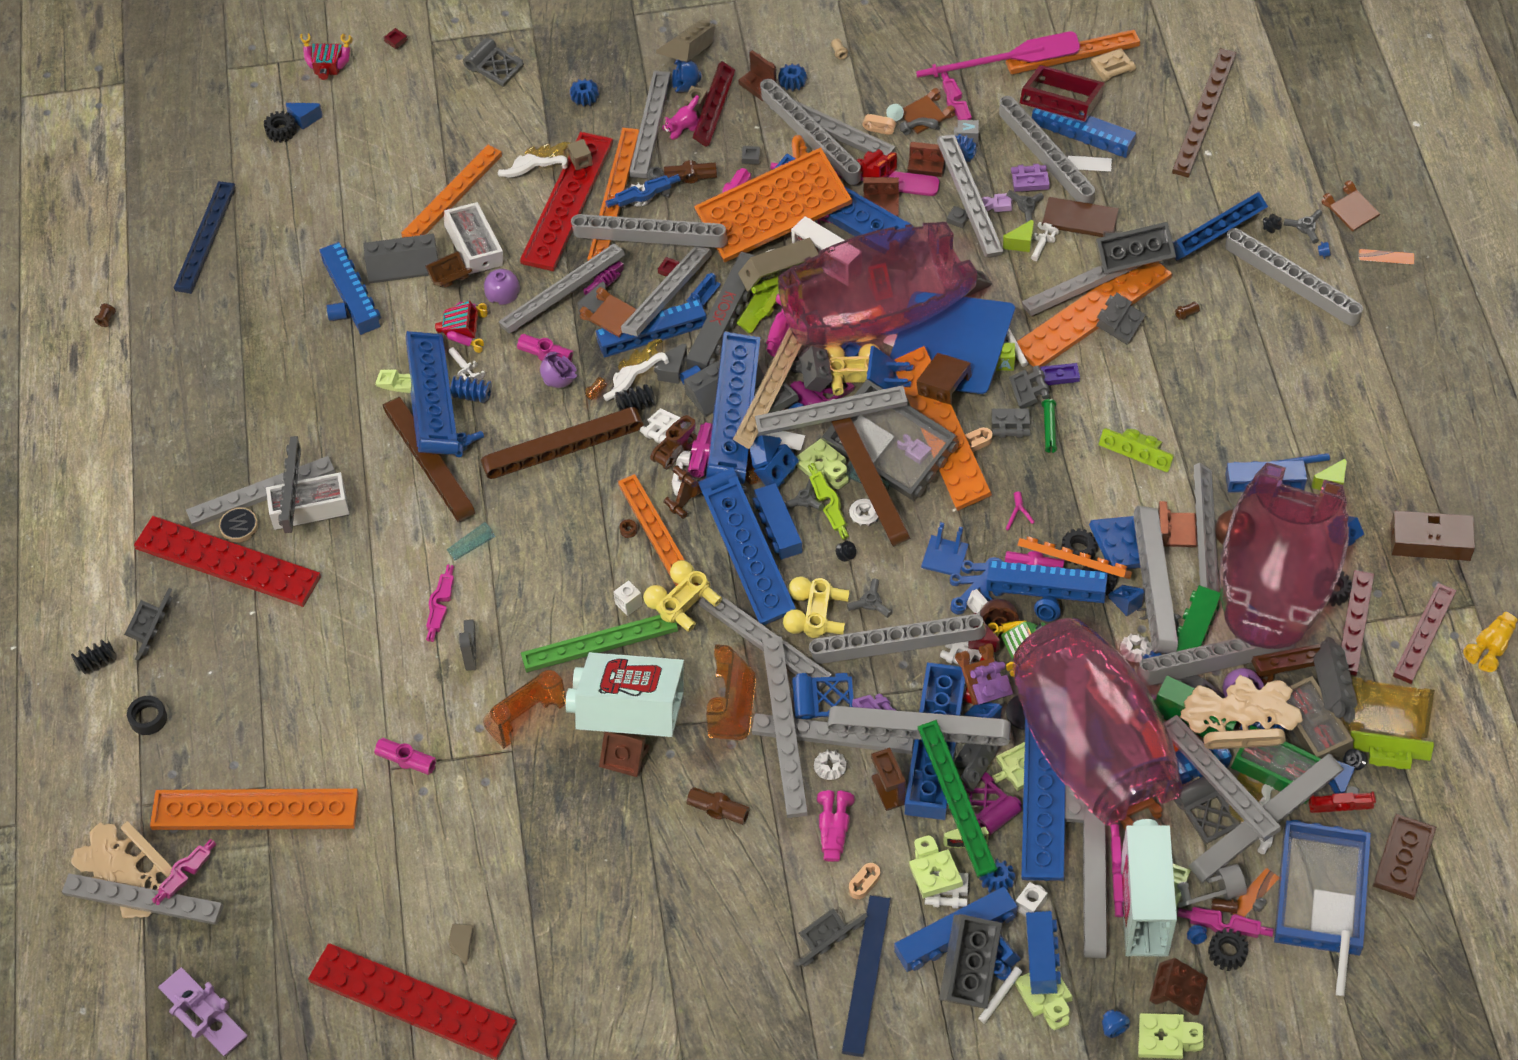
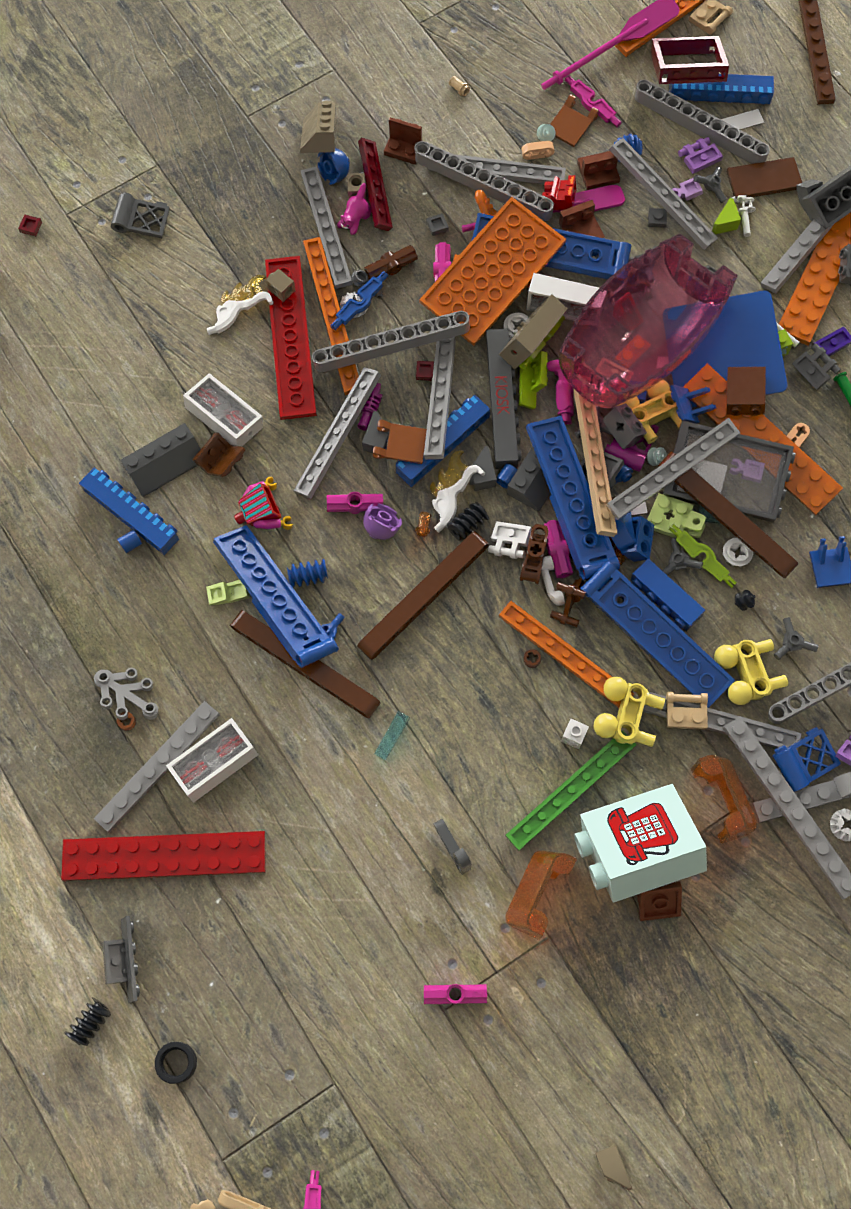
camera: 25 degrees left, 15 degrees up
(238, 524) = (154, 812): tile -> none
(254, 809) = (337, 1118): orange plate -> none
(257, 410) = (124, 691): none -> light grey plant
(257, 452) = (128, 727): none -> dark orange bush
(290, 479) = (195, 763): dark grey plate -> none
(438, 611) = (399, 822): dark pink piece -> none
(453, 192) = (174, 371): orange plate -> none
(465, 367) = (286, 550): white piece -> none
(501, 286) = (276, 452): medium lavender cylinder -> none
(584, 92) = (246, 216): blue gear -> none
(705, 289) = (469, 381): blue hinge -> none
(718, 805) = (772, 914): reddish brown piece -> none
(734, 621) = (686, 717): none -> tan plate
(792, 77) = (433, 130): blue gear -> none
(906, 127) = (563, 145): dark grey piece -> none
(968, 128) = (620, 127): light grey brick -> none
(1010, 419) = (814, 403): dark grey plate -> none

